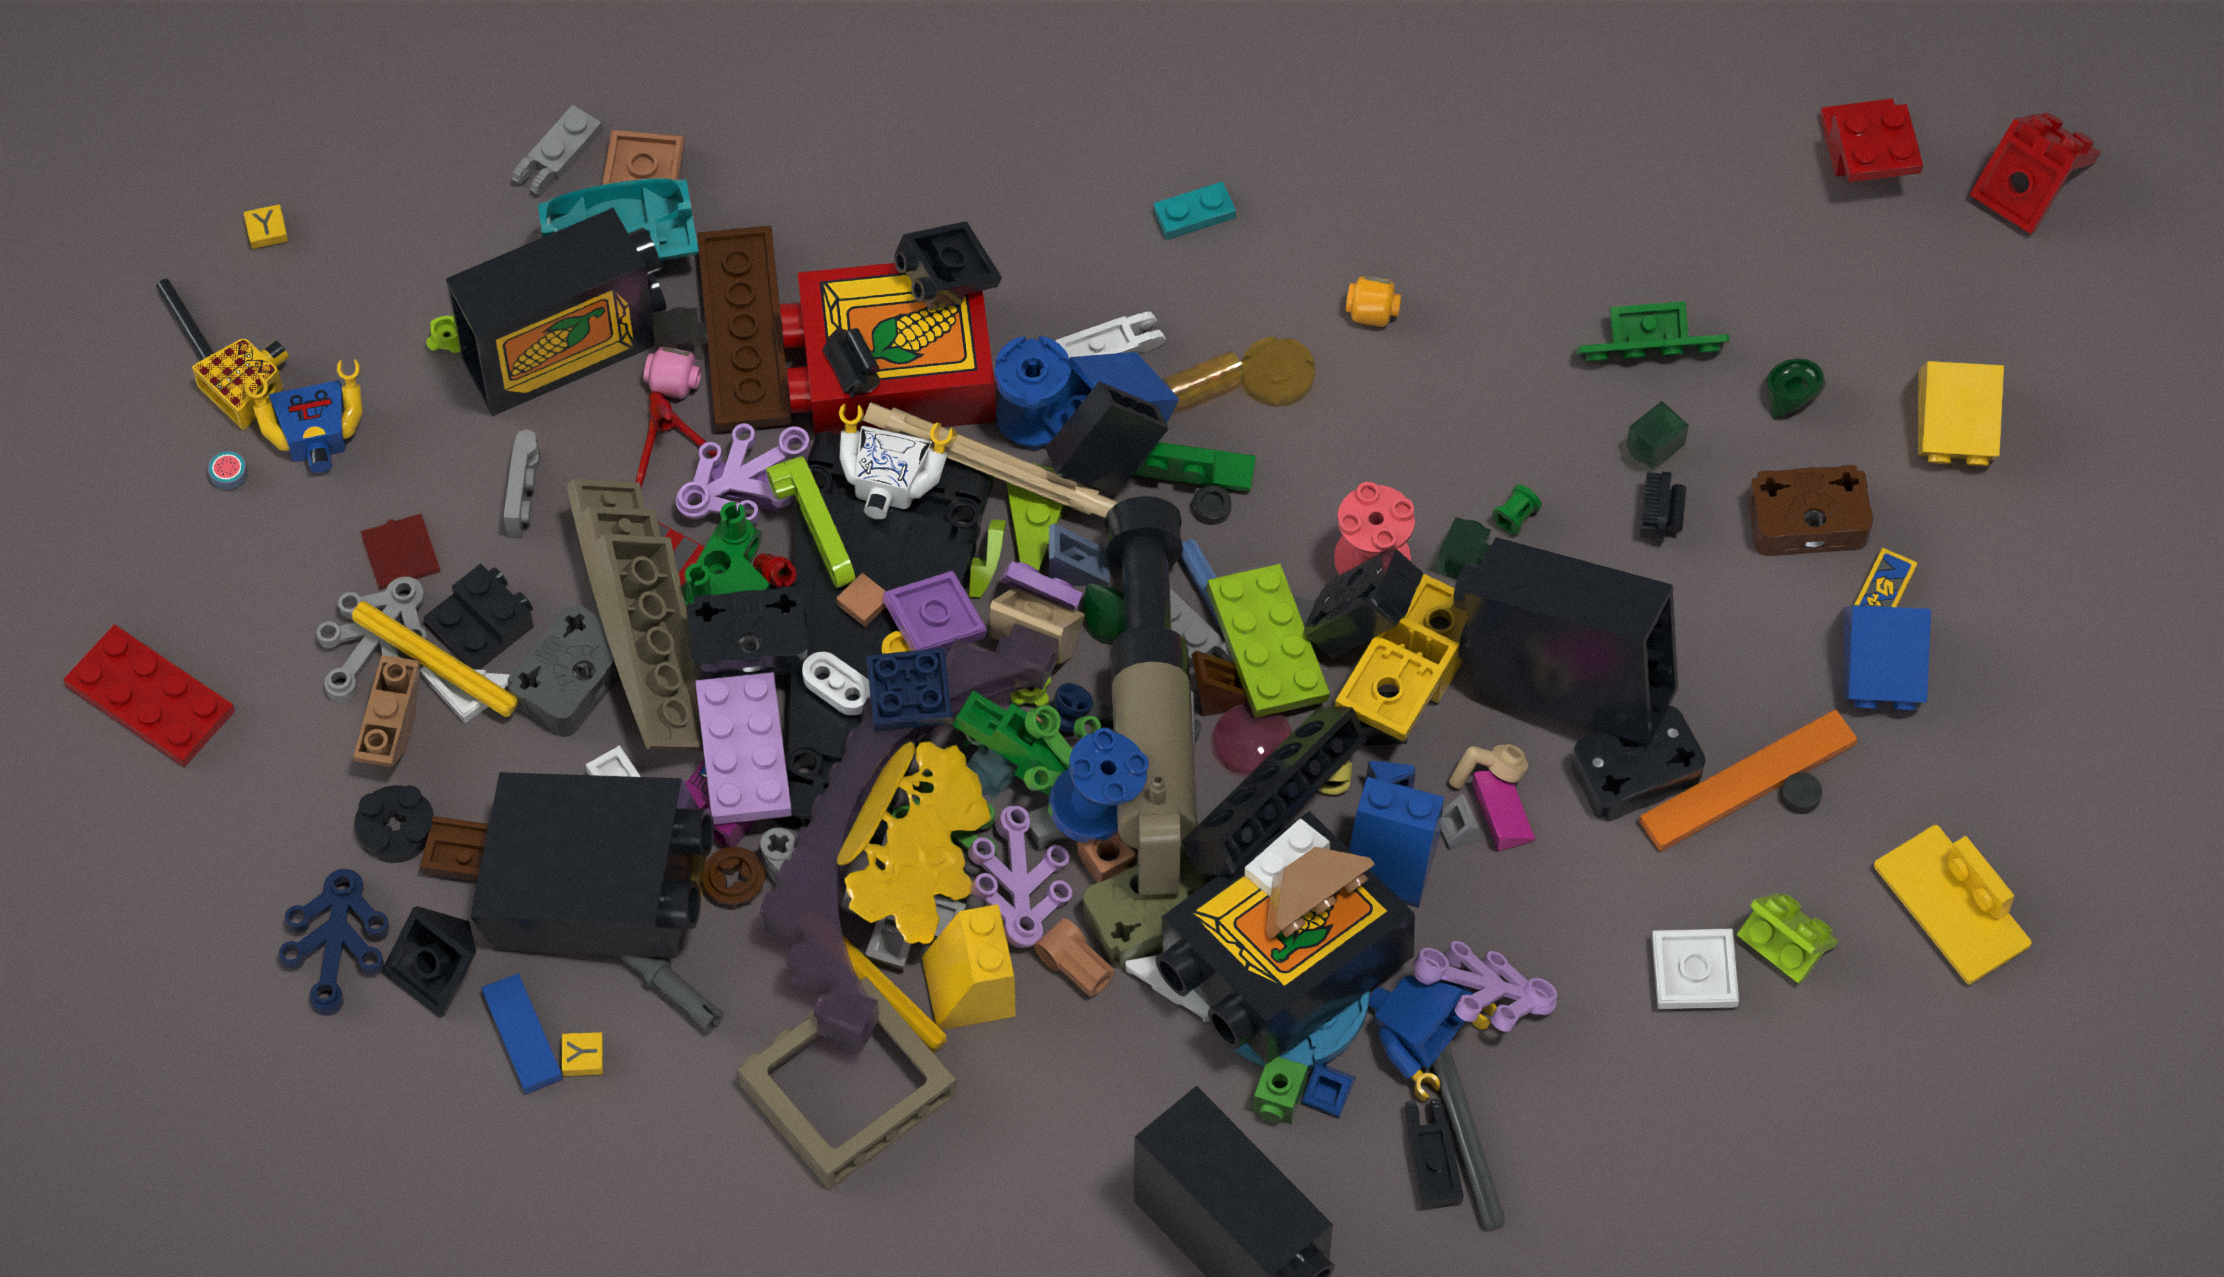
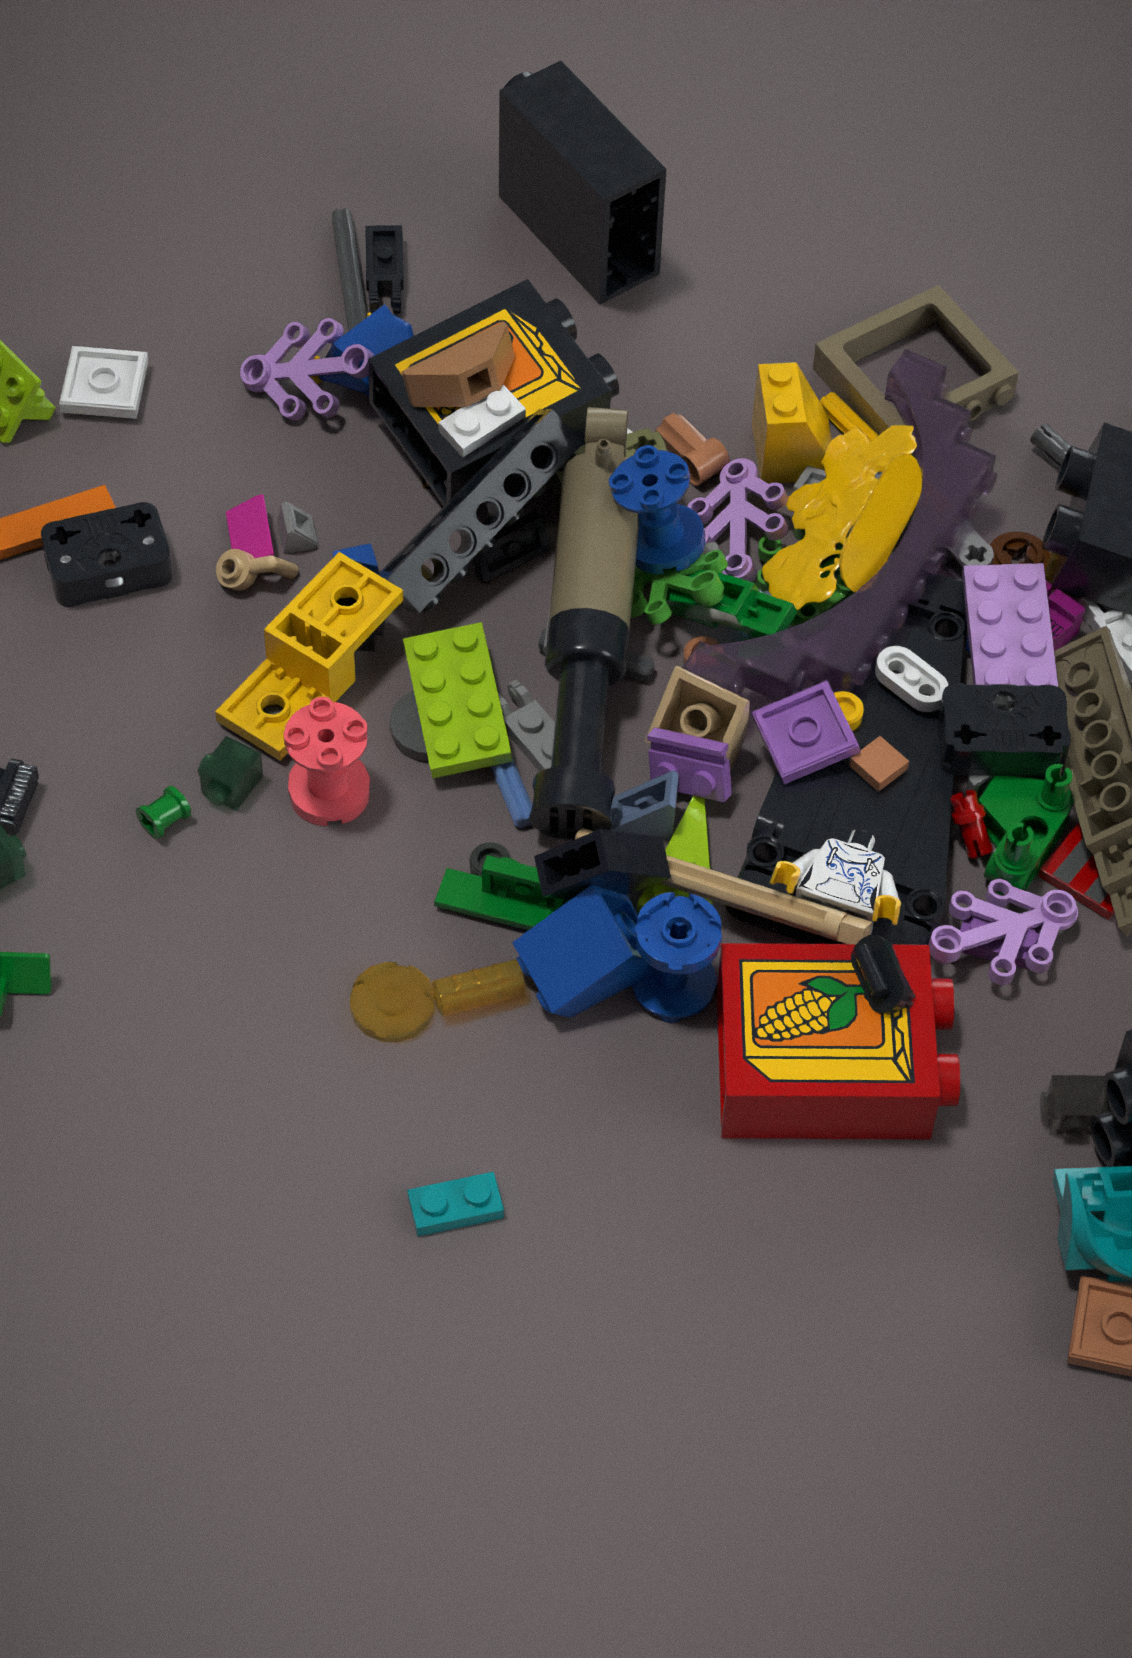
camera: 175 degrees left, 5 degrees down
(662, 420) = (1093, 1017): red plant -> none
(672, 372) = (1081, 1057): bright pink head -> none
(744, 328) = (1000, 1116): reddish brown plate -> none
(796, 479) = (945, 885): lime beam -> none
(909, 689) = (840, 631): dark blue tile -> none
(945, 264) = (766, 1060): black plate -> none
(983, 568) = (738, 823): lime slope -> none
(1071, 704) = (663, 655): dark blue wheel -> none
(1103, 613) = (621, 760): dark green piece -> none
(1115, 337) = (579, 1046): white hinge -> none
(1217, 684) = (516, 660): reddish brown slope -> none
(1246, 740) = (501, 620): clear pink dish -> none
(1363, 602) = (355, 671): black axle -> none
(1373, 301) = (268, 1058): light orange head -> none
(1399, 834) = (364, 496): blue slope -> none
(1569, 639) = (153, 587): black brick -> none

